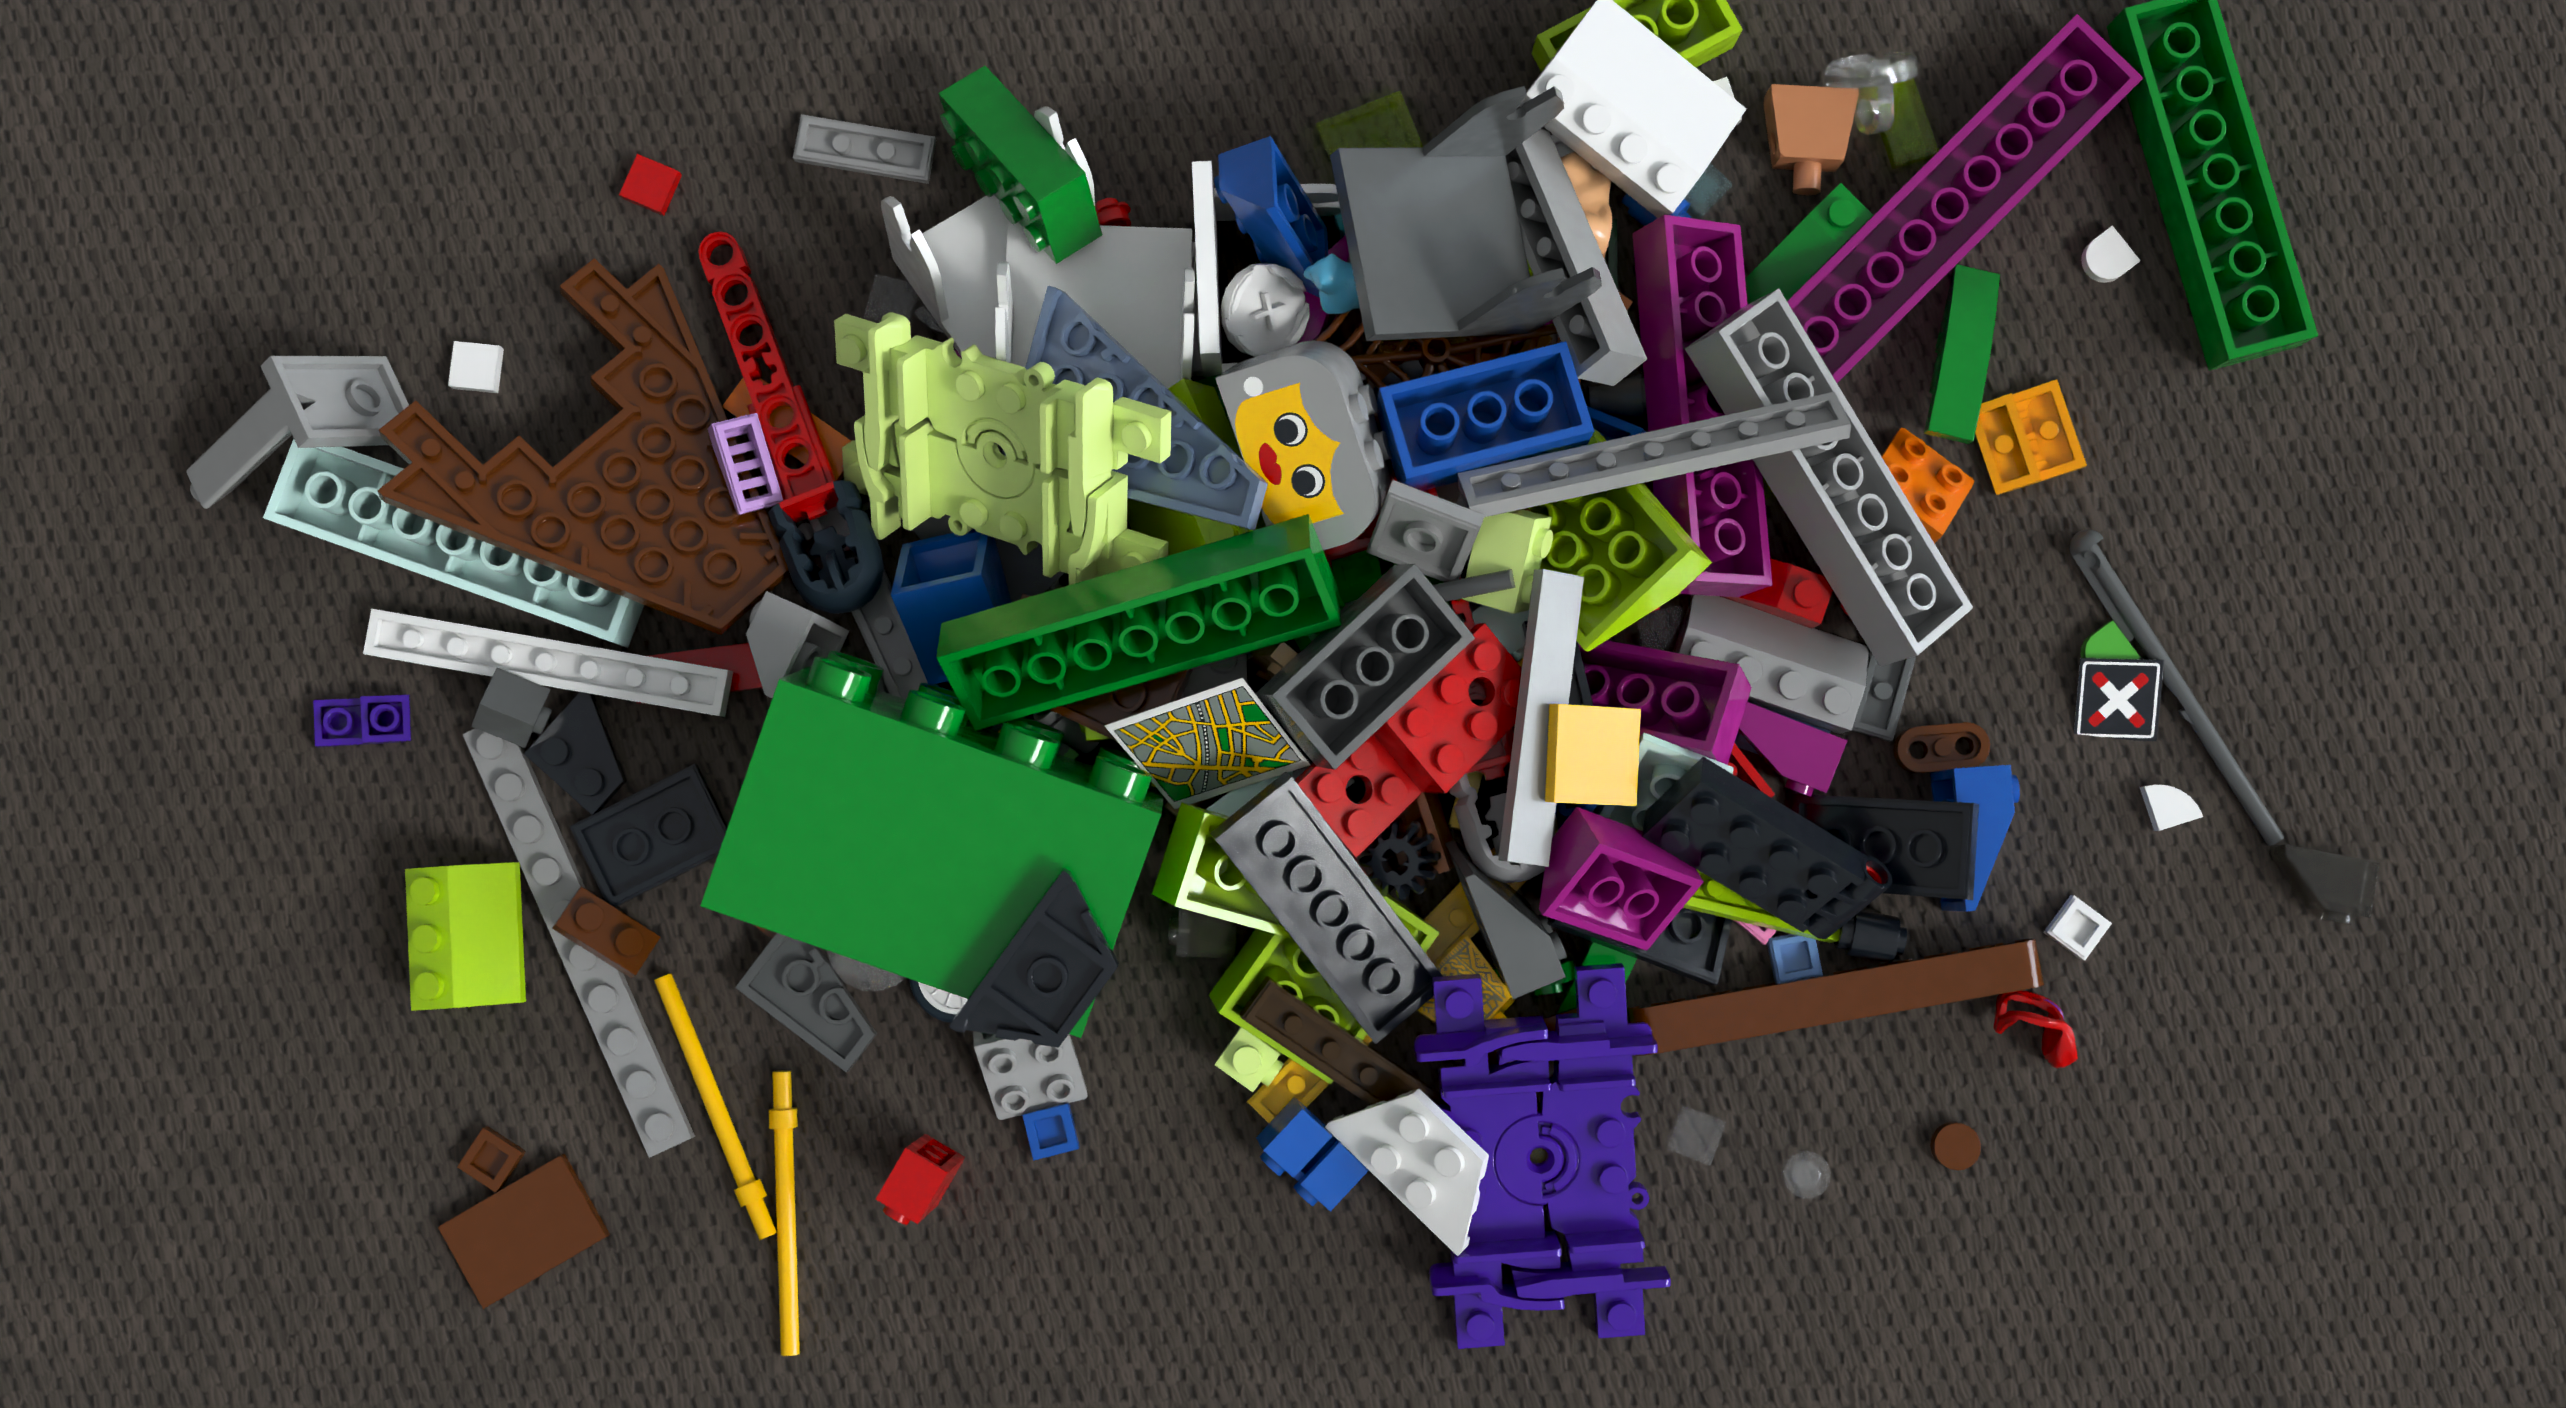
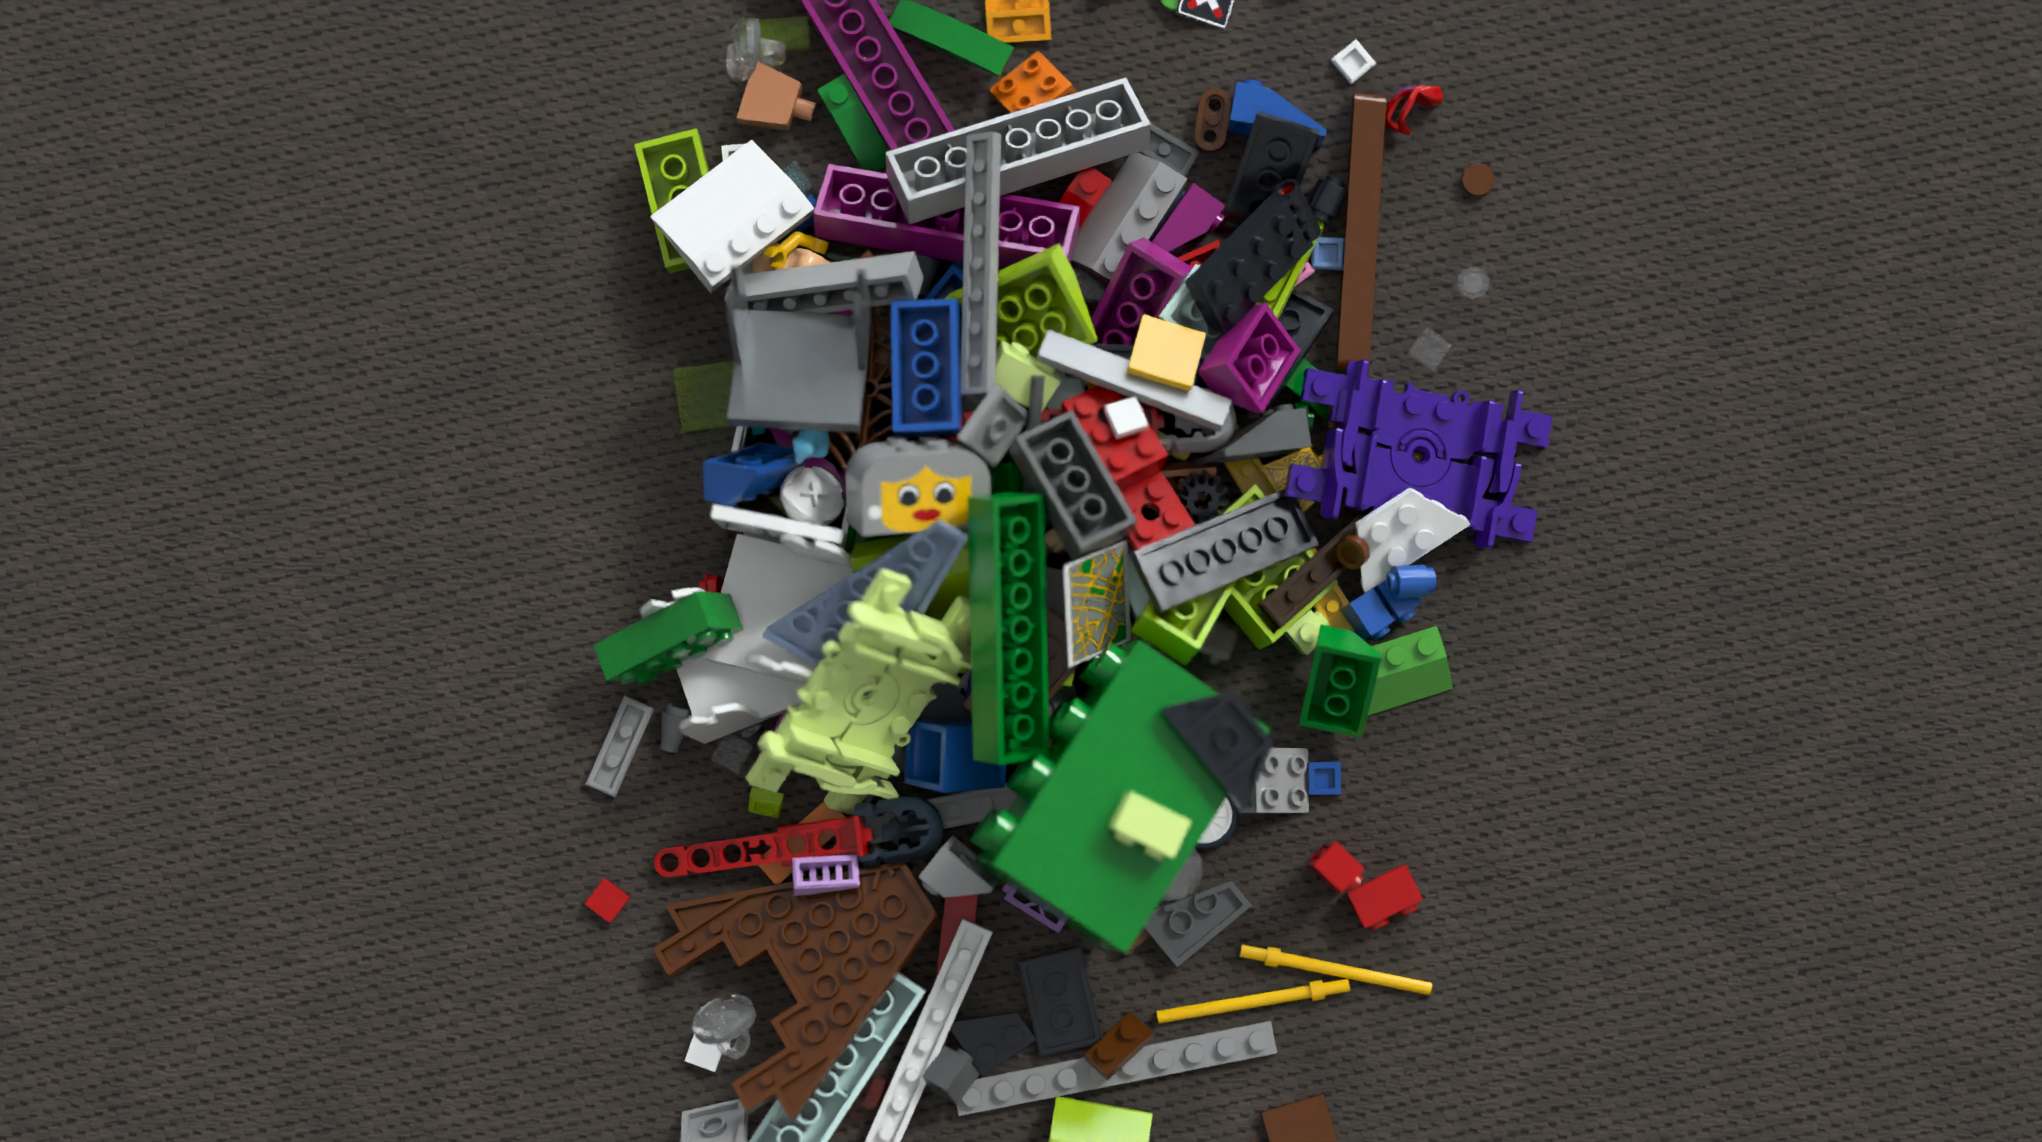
camera: 75 degrees left, 0 degrees up
(467, 610) = (874, 1092): none -> clear red tile
(515, 379) = (723, 1021): none -> clear tile
(829, 373) = (765, 802): none -> lime tile
(889, 892) = (1148, 825): none -> yellowish green brick
(902, 1260) = (1384, 896): none -> red brick
(920, 209) = (670, 731): none -> dark grey cone
(1185, 1122) = (1340, 683): none -> green slope
(1226, 1200) = (1410, 670): none -> bright green slope
(1355, 1189) = (1411, 581): none -> blue brick
(1376, 1095) = (1353, 552): none -> reddish brown tile
(1483, 718) = (1125, 417): none -> white tile
(1616, 199) = (790, 243): none -> yellow arm

